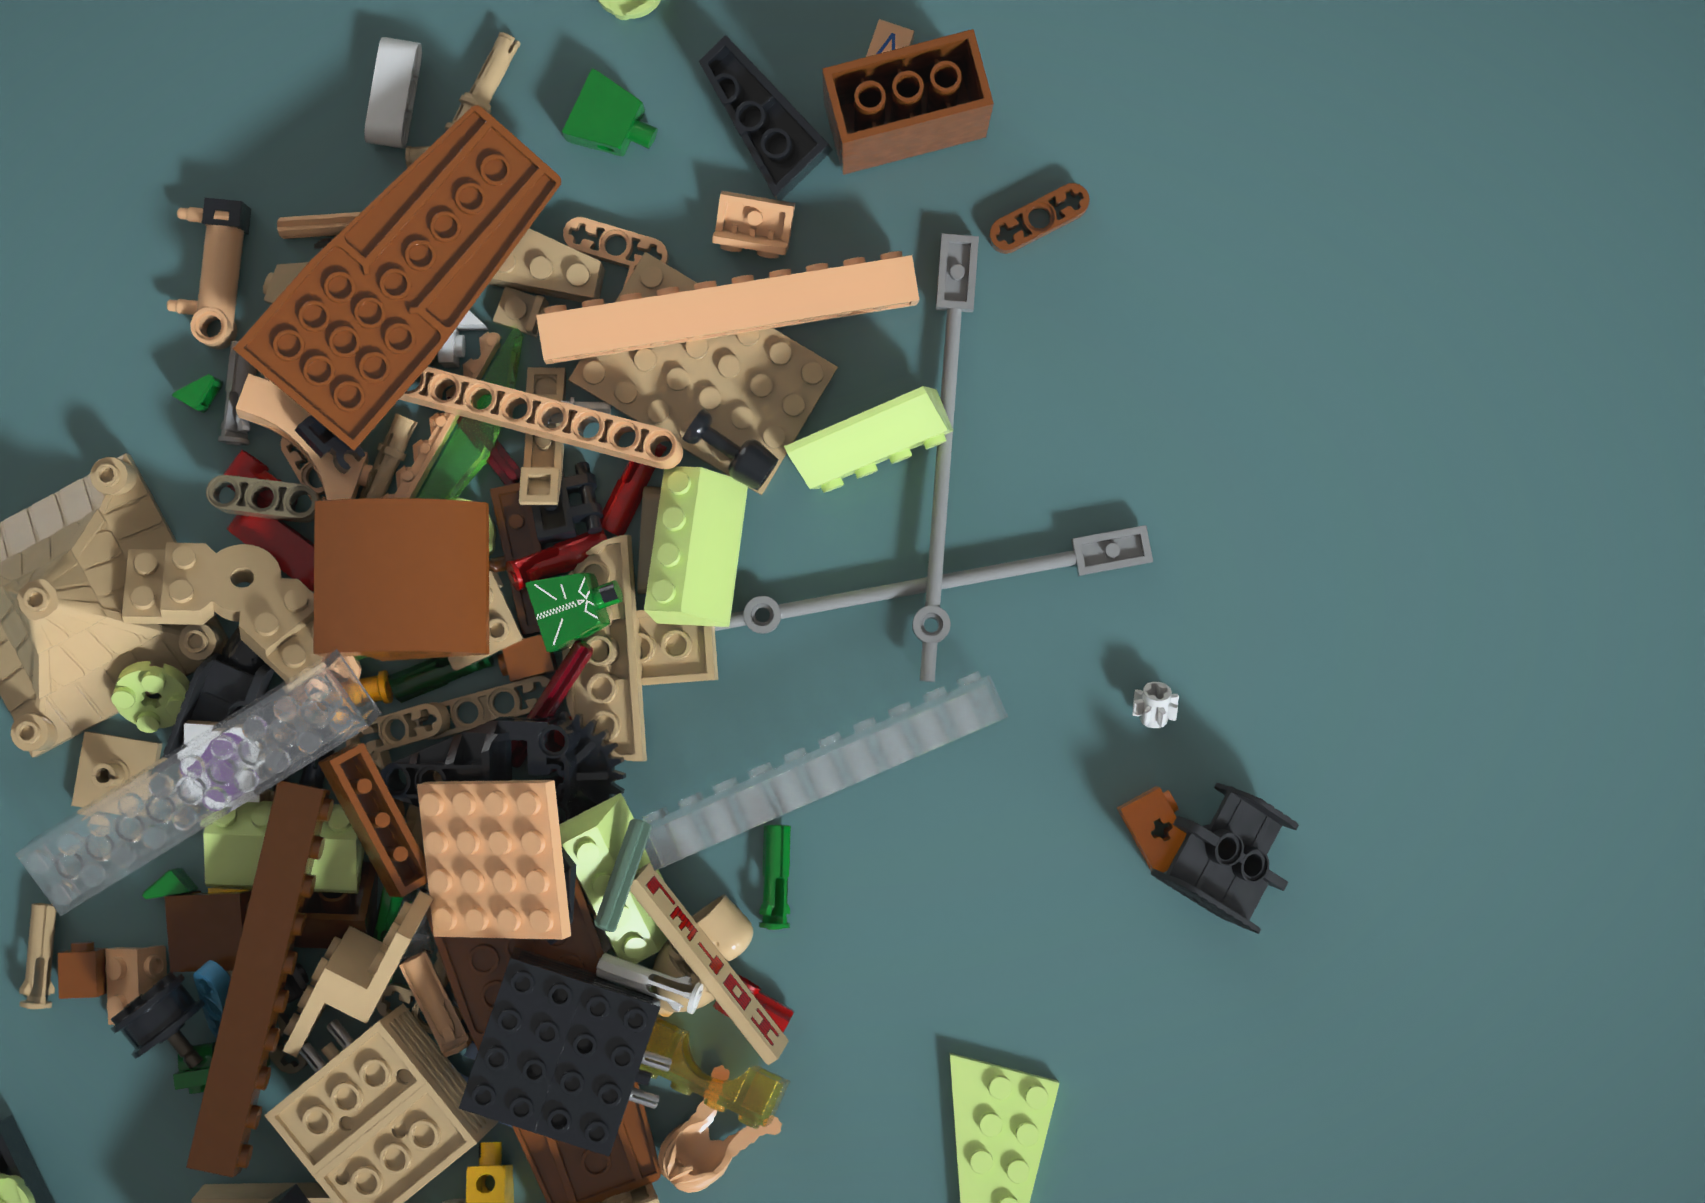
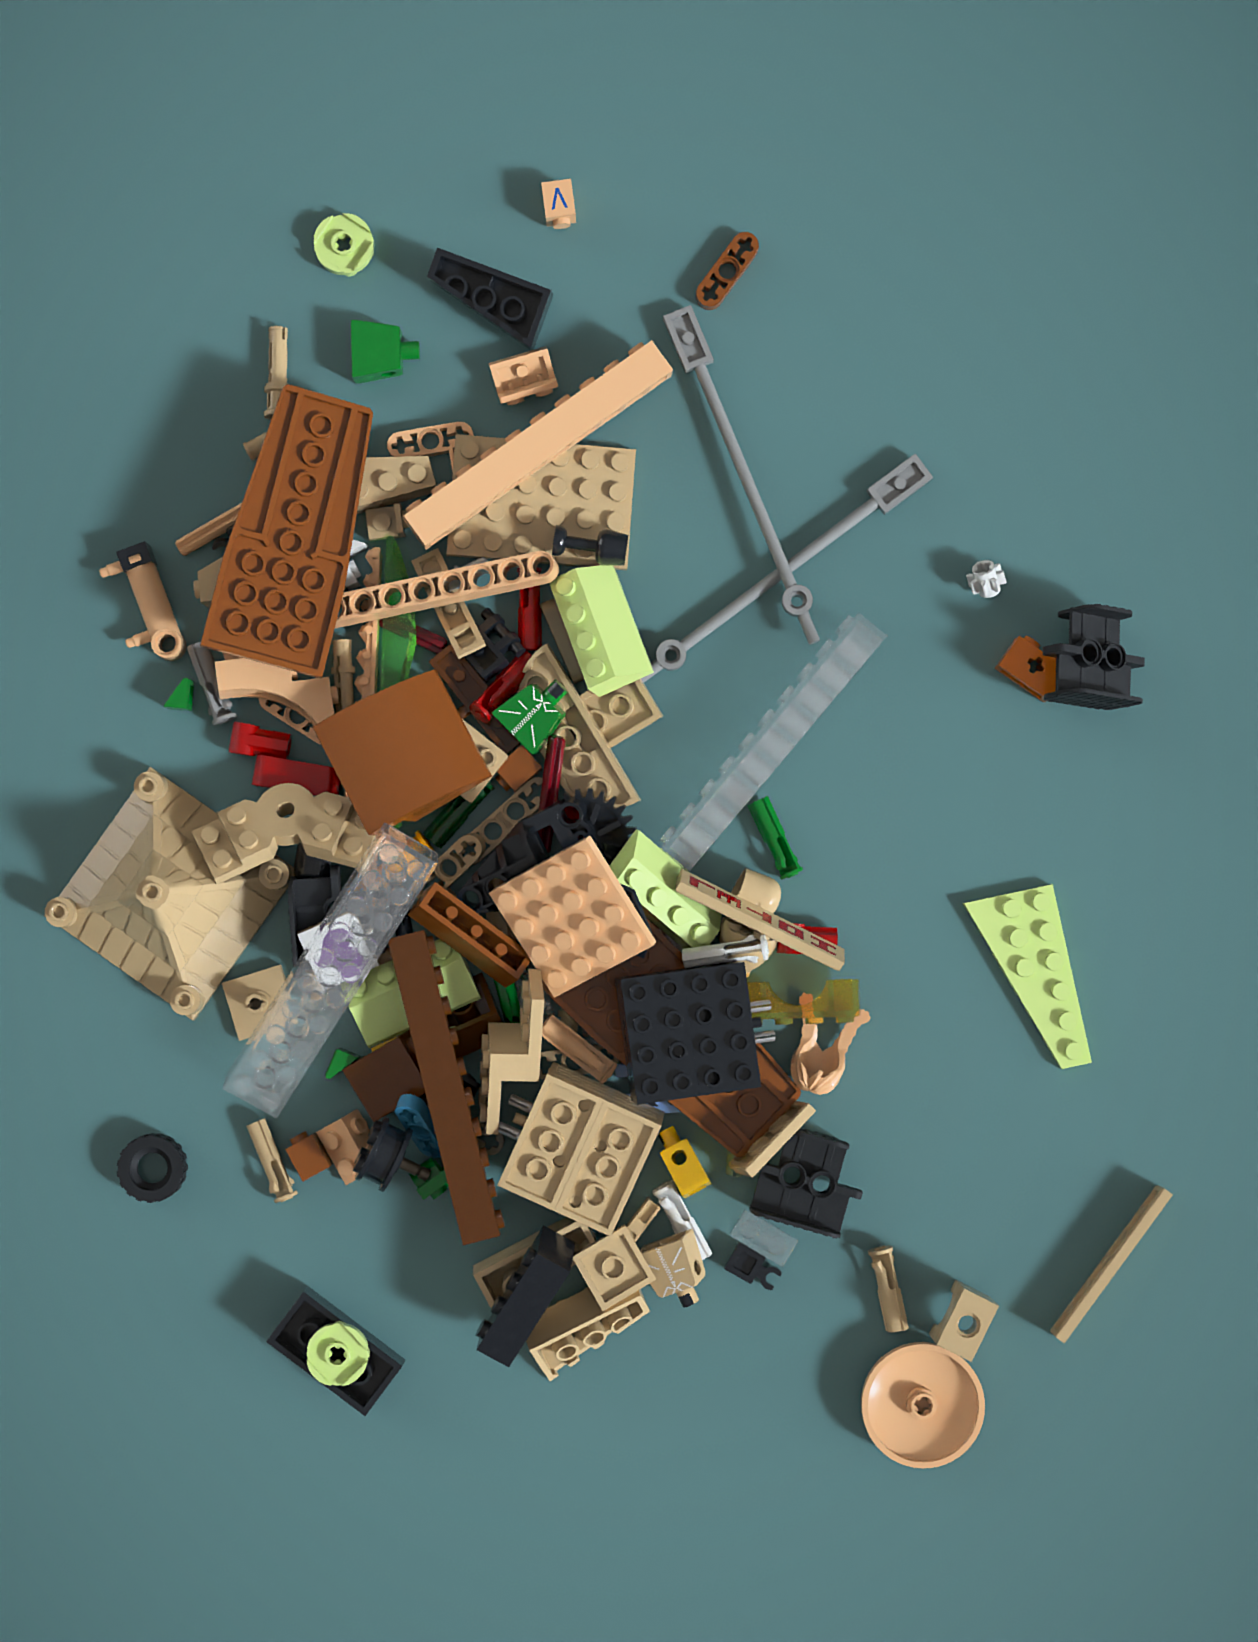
camera: 35 degrees left, 0 degrees up
(141, 710) = (262, 945): yellowish green plate -> none
(246, 497) = (256, 745): dark tan beam -> none
(324, 441) = (295, 682): black plate -> none
(393, 92) = (213, 409): white beam -> none
(622, 875) = (669, 883): sand green axle -> none
(871, 438) = (687, 487): yellowish green slope -> none
(907, 101) = (594, 231): dark orange brick -> none

